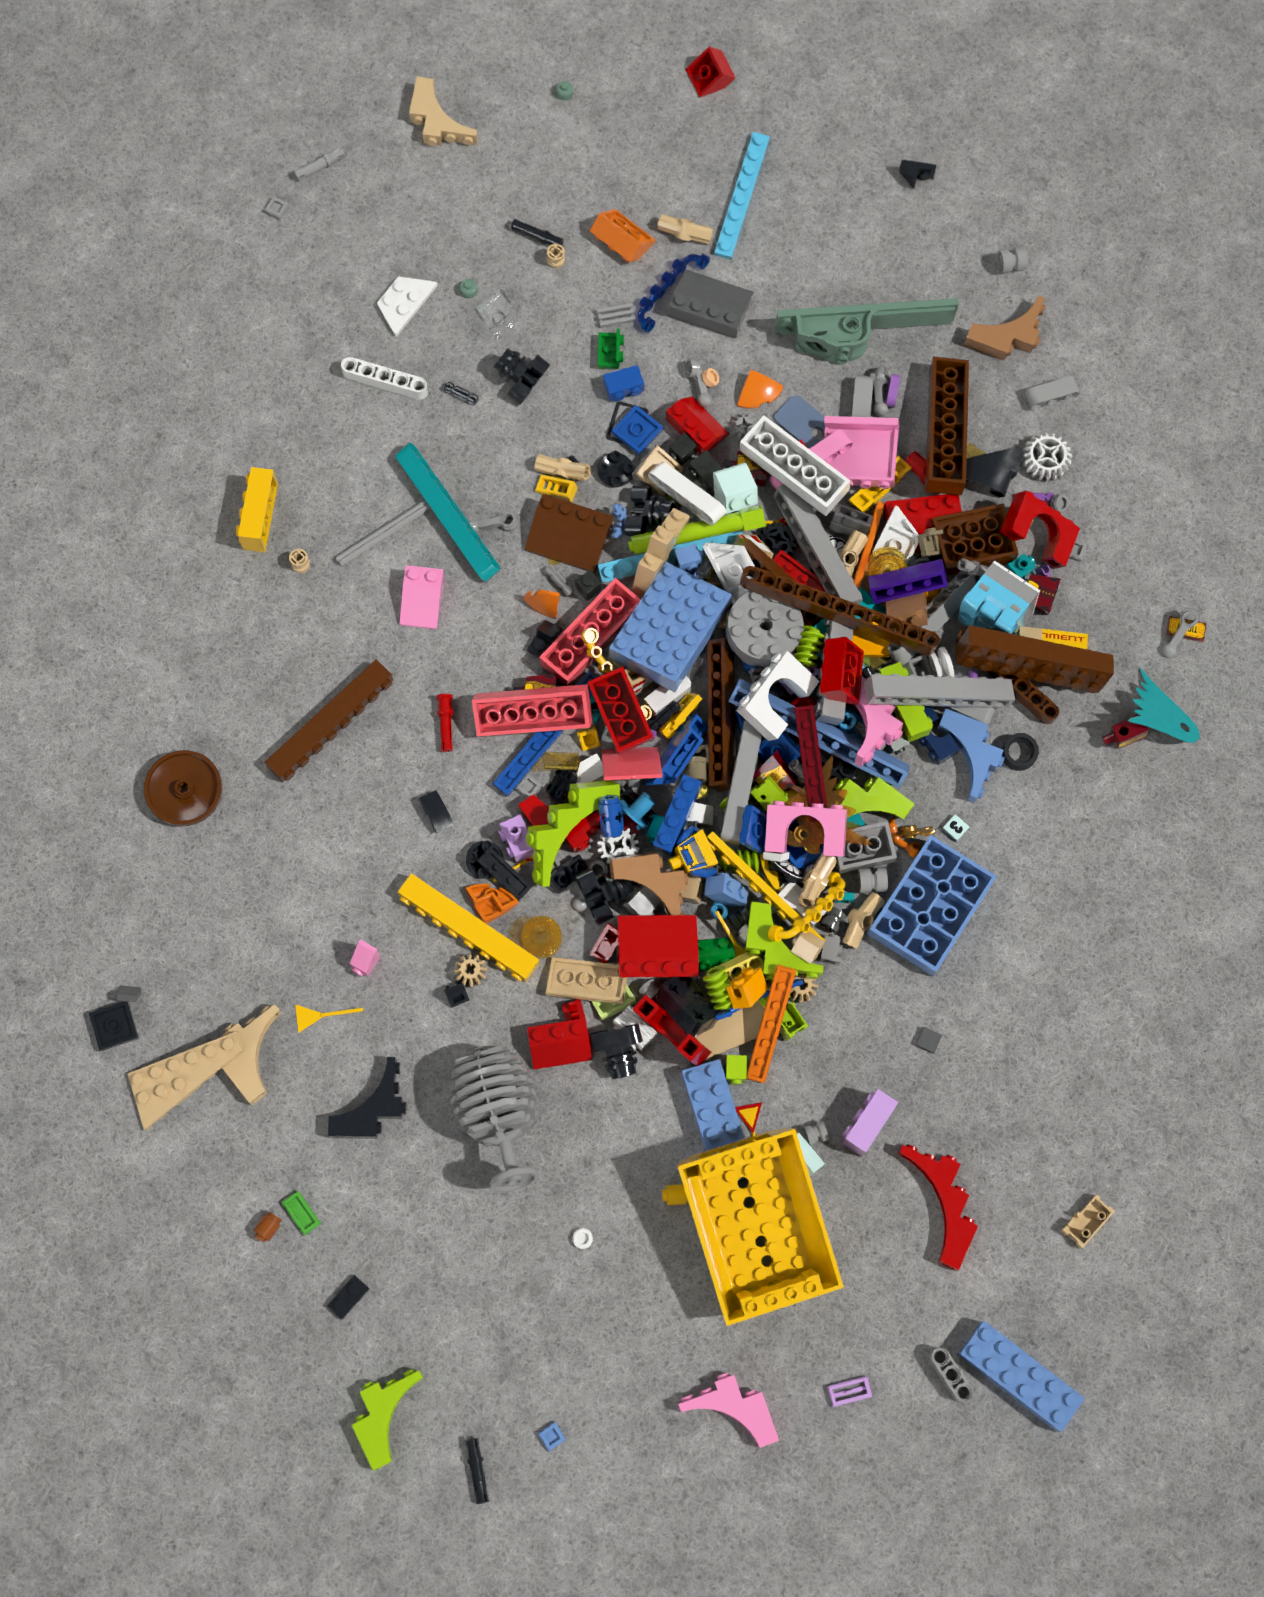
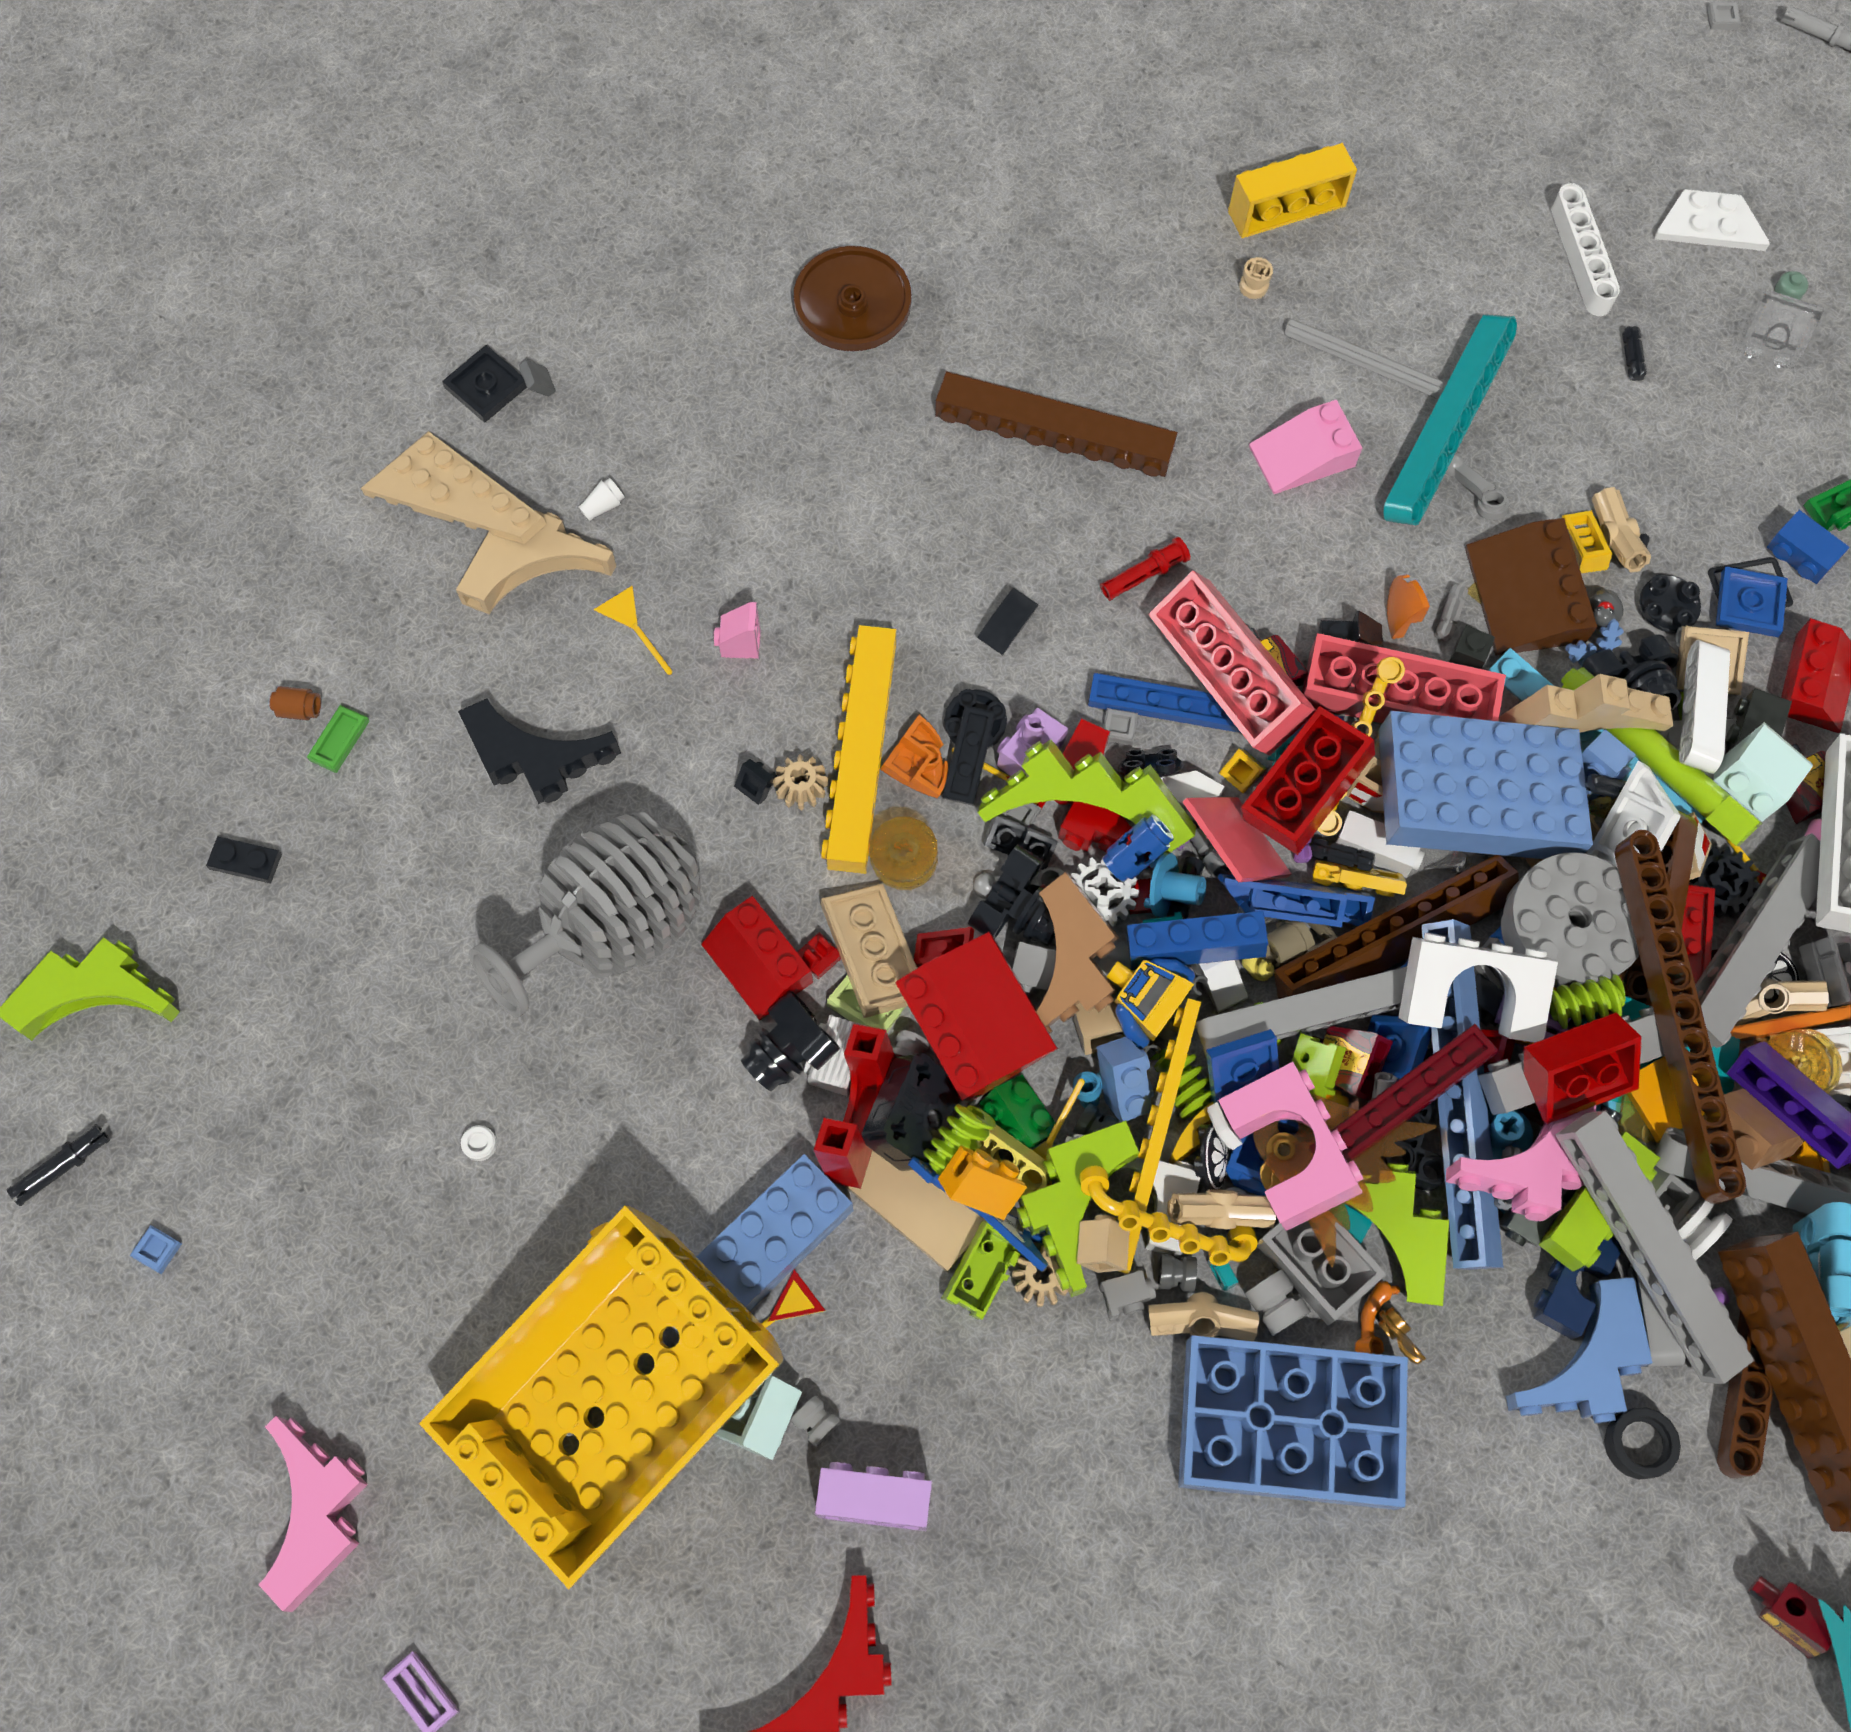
camera: 65 degrees right, 5 degrees down
(232, 994) = (601, 499): none -> white cone
(524, 376) = (1718, 416): black beam -> none
(561, 760) = (1183, 746): clear yellow piece -> none
(602, 503) = (1605, 607): none -> dark grey animal
(683, 449) = (1769, 674): pearl dark grey brick -> none
(736, 1069) = (852, 1239): lime brick -> none
(770, 1023) = (952, 1253): orange tile -> none
(929, 1040) = (1068, 1534): dark grey tile -> none
(955, 828) = (1447, 1399): light aqua tile -> none

